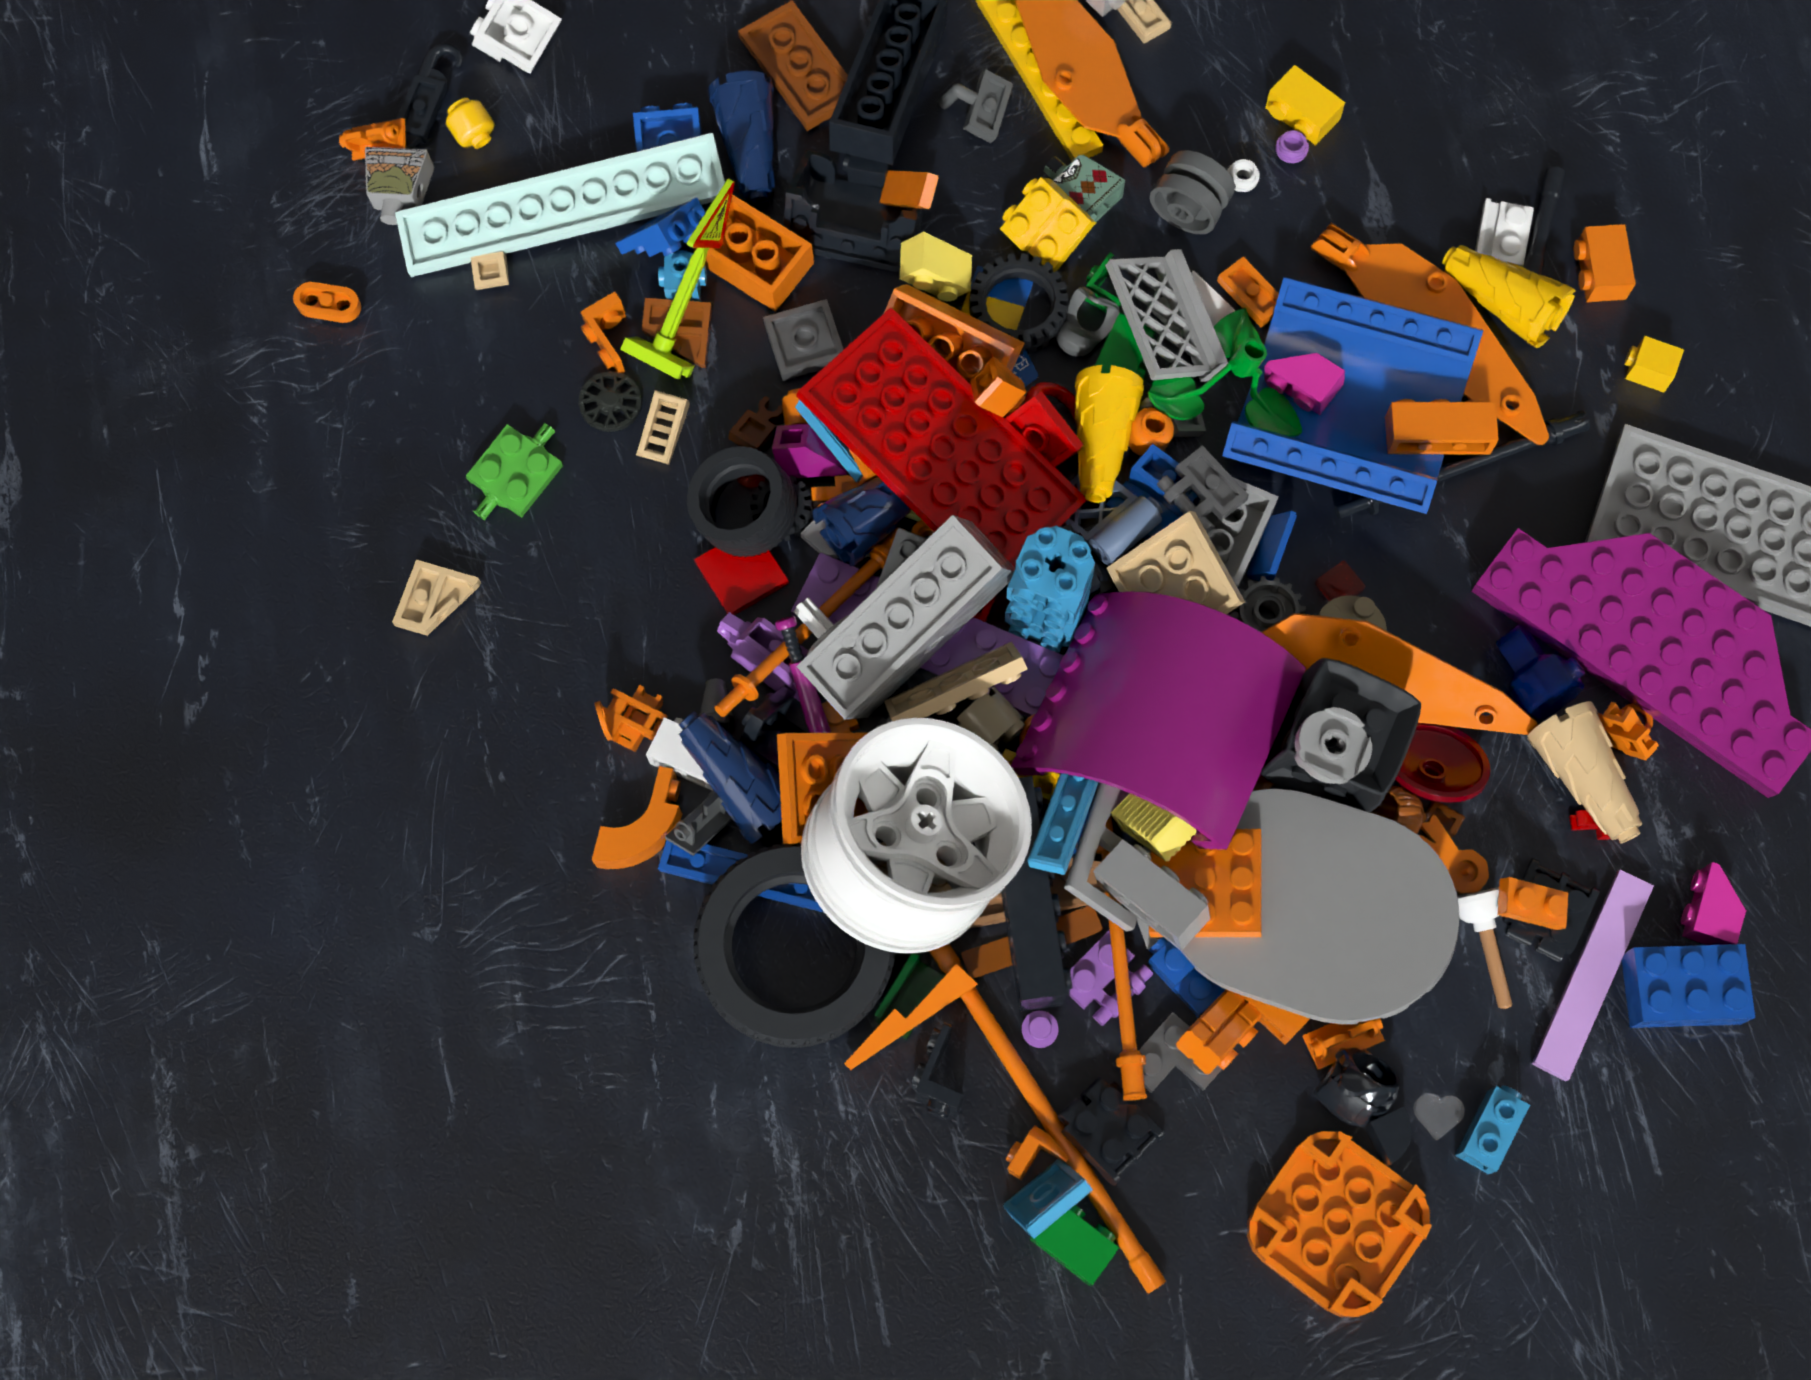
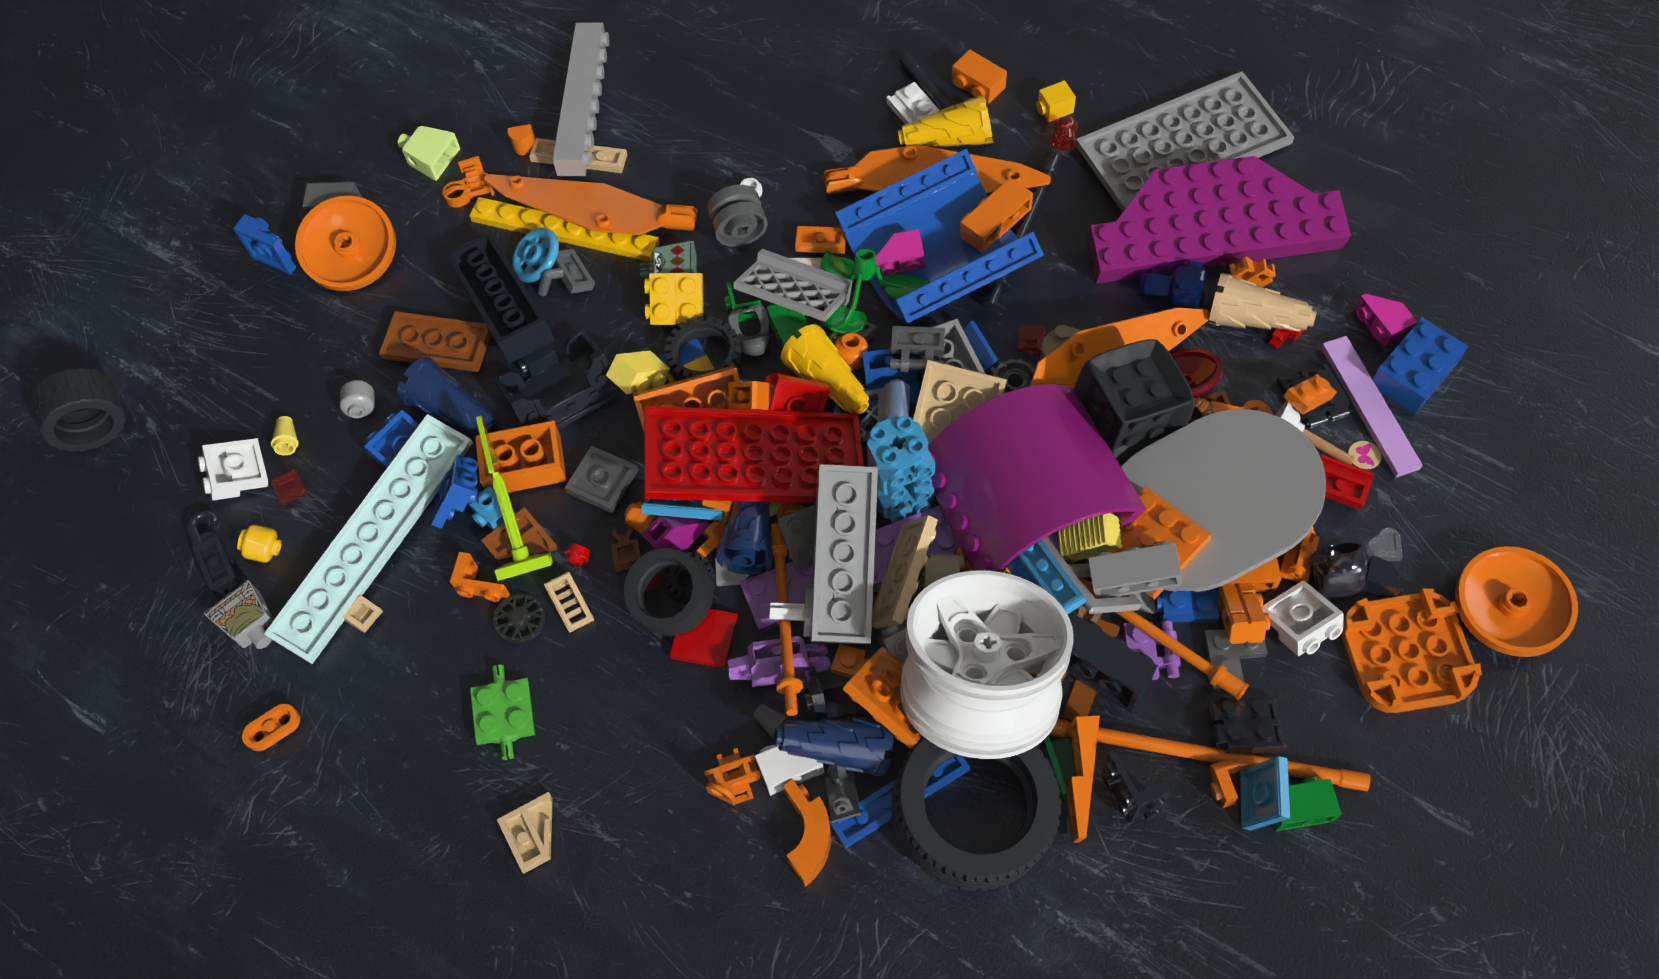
camera: 45 degrees left, 10 degrees down
(383, 134) = (207, 597): orange hinge -> none
(545, 91) = (289, 487): none -> clear red tile
(585, 38) = (284, 436): none -> light yellow cone
(677, 59) = (357, 397): none -> light grey head
(712, 390) = (577, 554): none -> red plate
(808, 695) = (812, 650): magenta piece -> none
(909, 189) = (581, 342): orange tile -> none
(969, 56) = (534, 254): none -> dark azure plate
(1039, 1029) = (1150, 712): medium lavender plate -> none
(1273, 1093) = (1304, 618): none -> white plate
(1292, 147) = (759, 155): medium lavender plate -> none
(1304, 105) = (744, 129): yellow brick -> none
(1314, 755) = (1142, 409): light grey plate -> none
(1468, 1014) = (1346, 482): none -> red plate
(1491, 1287) = (1516, 601): none -> orange dish
(1493, 1129) = (1421, 525): dark azure brick -> none
(1529, 1013) = (1365, 454): none -> tan sticker
(1624, 405) = (1065, 133): none -> clear red wheel

